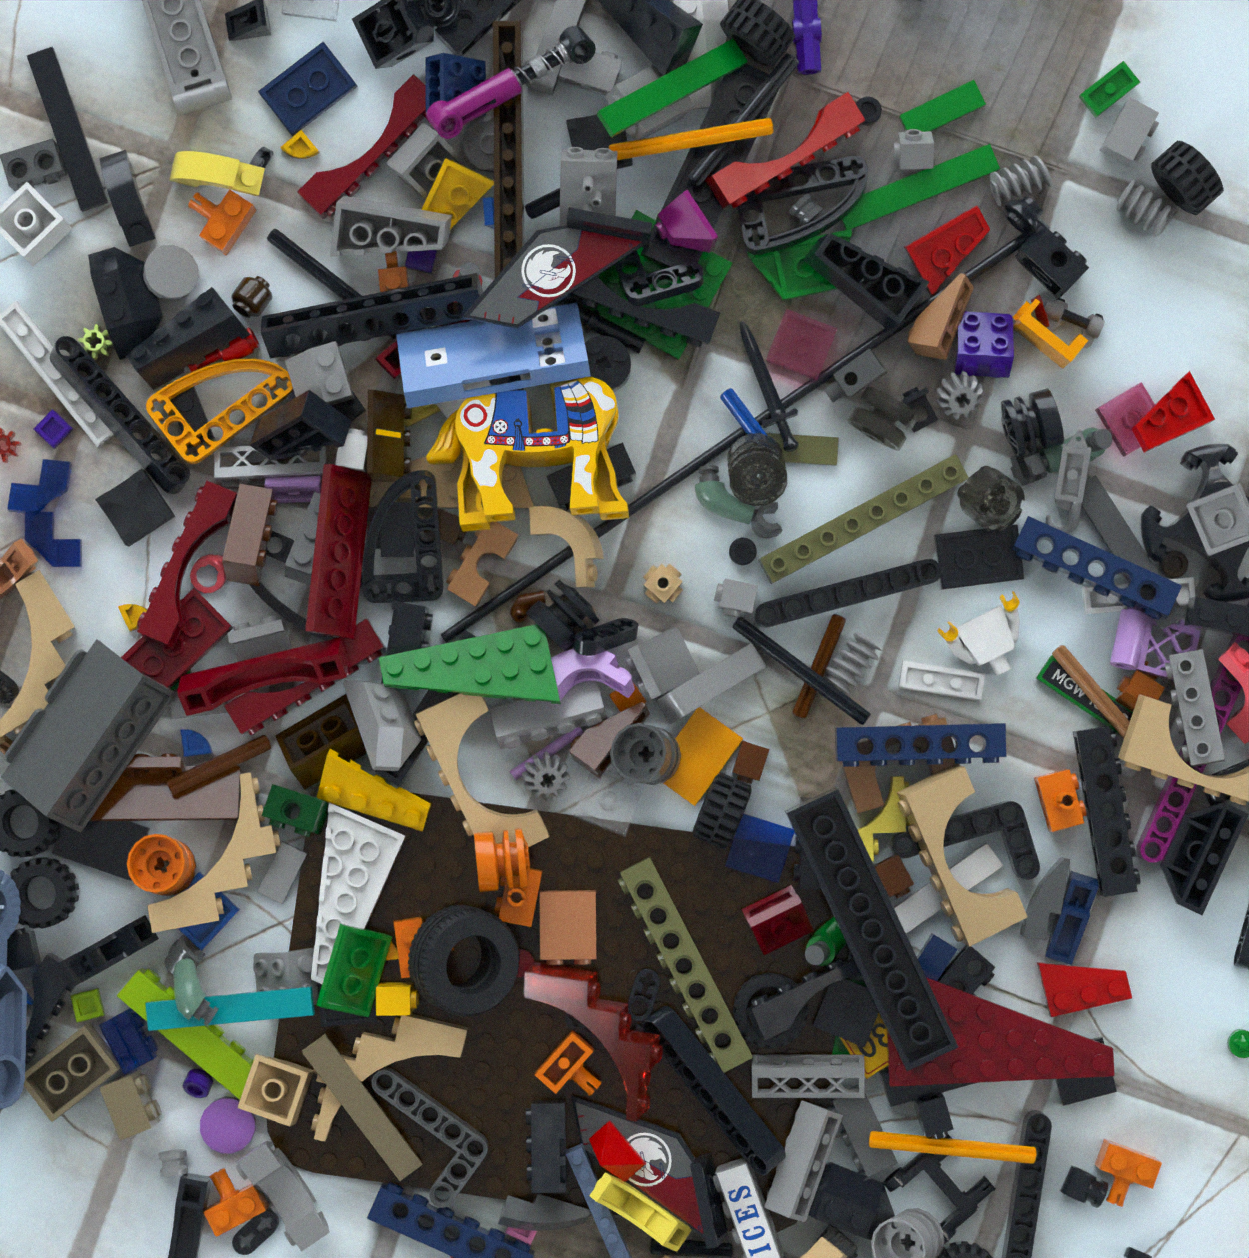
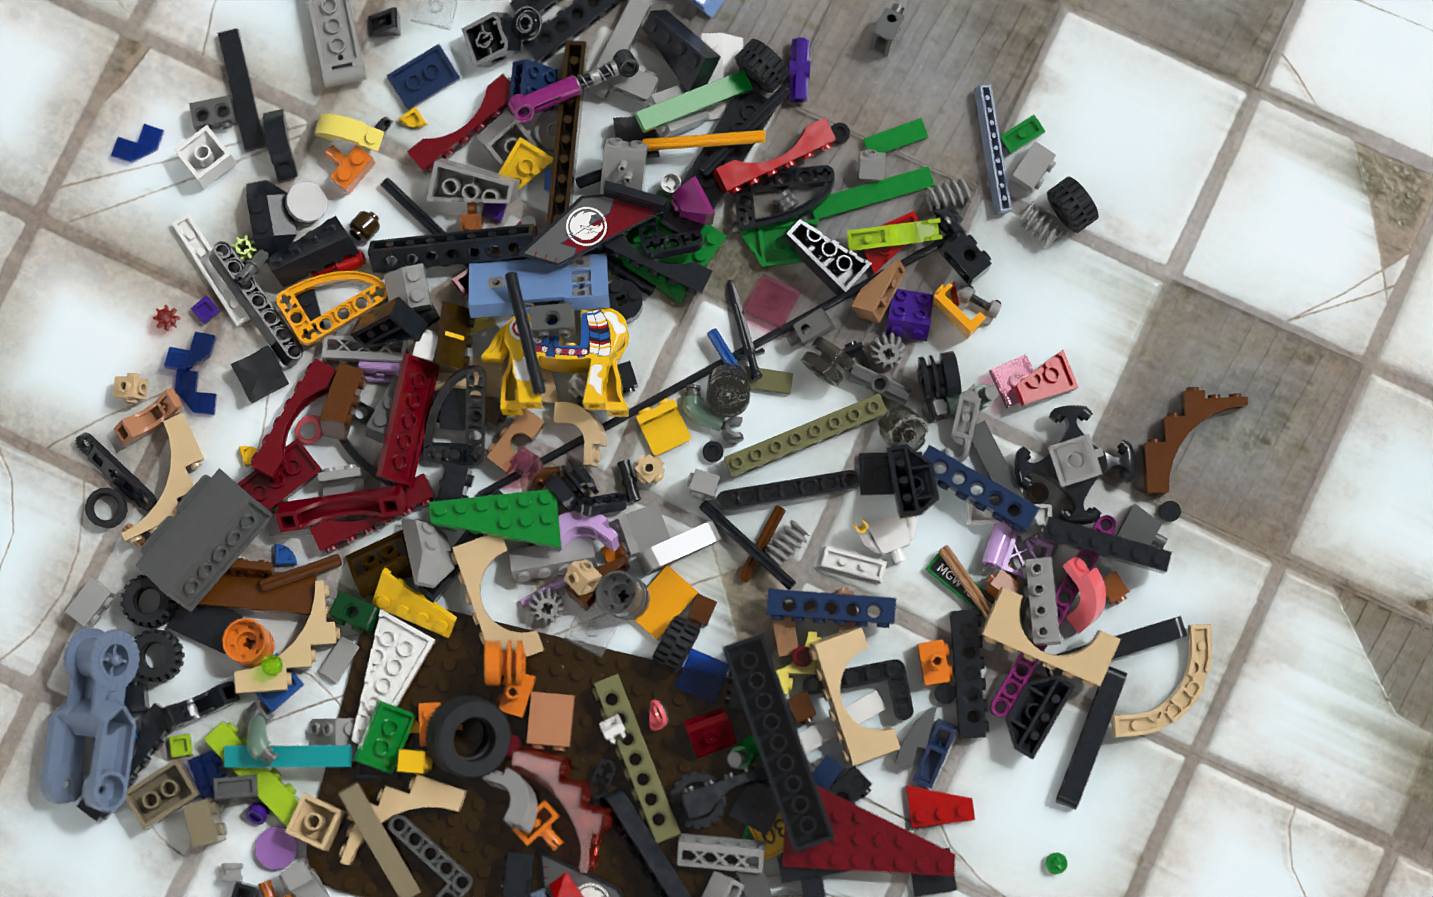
camera: 10 degrees right, 5 degrees down
(109, 366) = (252, 267): none -> dark grey axle
(166, 1054) = (235, 787): none -> dark grey tile
(196, 893) = (272, 665): none -> clear neon green wheel
(483, 423) = (525, 333): none -> black axle
(500, 592) = (526, 463): none -> clear pink brick
(502, 395) = (543, 314): none -> dark grey brick
(546, 1042) = (523, 802): none -> light grey arch
(559, 482) = (578, 384): none -> light grey gear
(591, 736) = (582, 577): none -> tan brick
(637, 601) = (629, 481): none -> black pin
(651, 196) = (672, 181): none -> white wheel
(651, 929) = (612, 727): none -> white tile
(675, 525) = (663, 427): none -> yellow bracket
(706, 915) = (656, 722): none -> coral piece
(887, 810) = (801, 656): none -> dark red tile
(954, 240) = (893, 235): none -> lime piece
(970, 447) = (892, 390): none -> dark grey piece
(1011, 568) = (912, 481): none -> black wedge
(1072, 113) = (992, 149): none -> sand blue piece
(1077, 838) = (945, 693): none -> black tile

